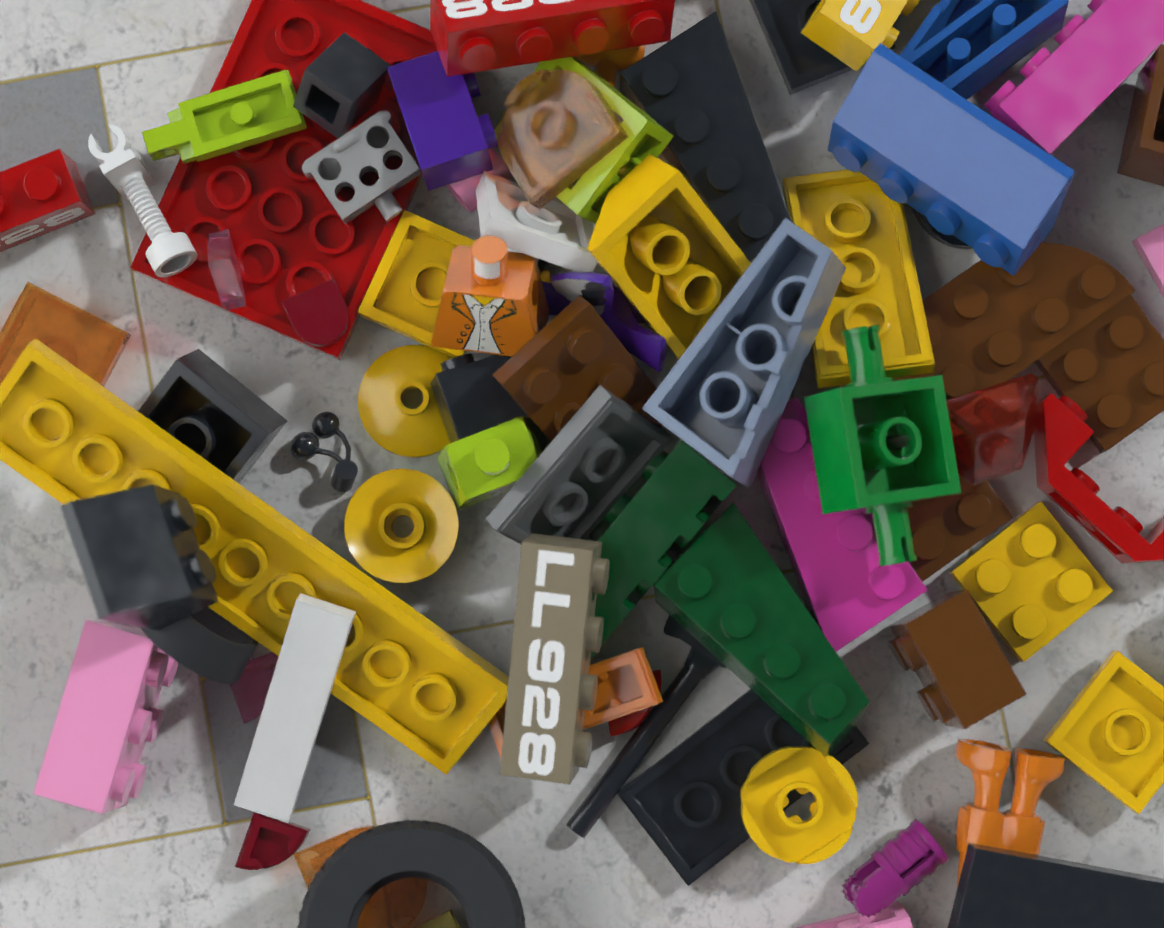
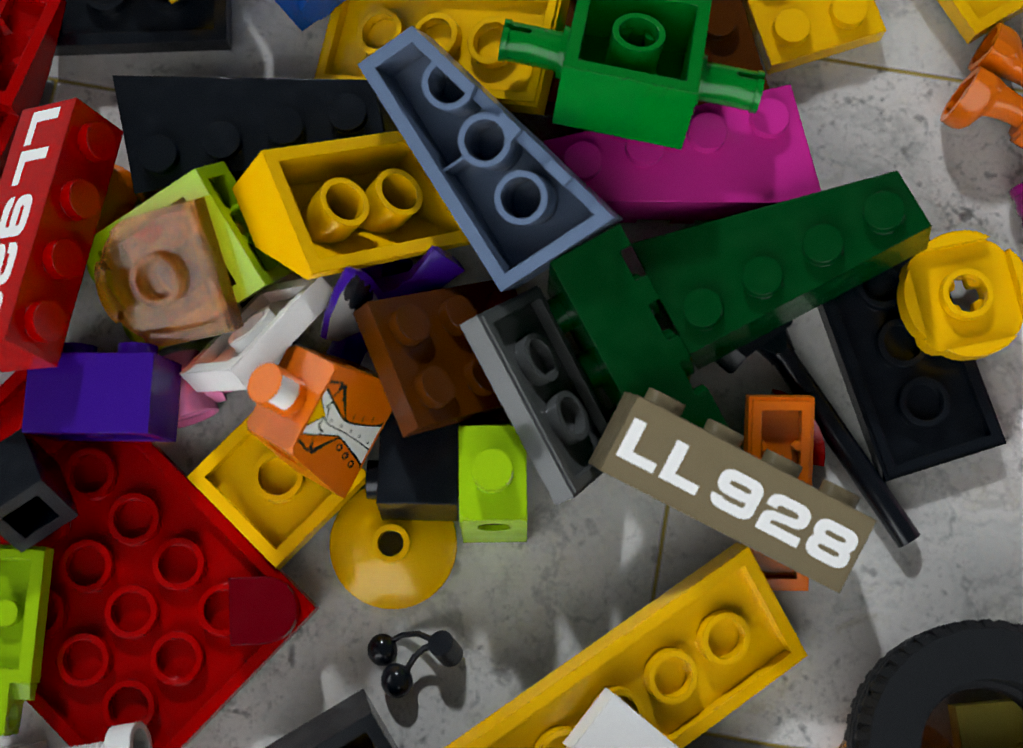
camera: 70 degrees left, 5 degrees down
(225, 270) = (171, 696): clear pink tile -> none
(355, 154) = (104, 506): light grey piece -> none
(371, 521) = (523, 642): yellow dish -> none
(955, 661) = (872, 82): reddish brown brick -> none

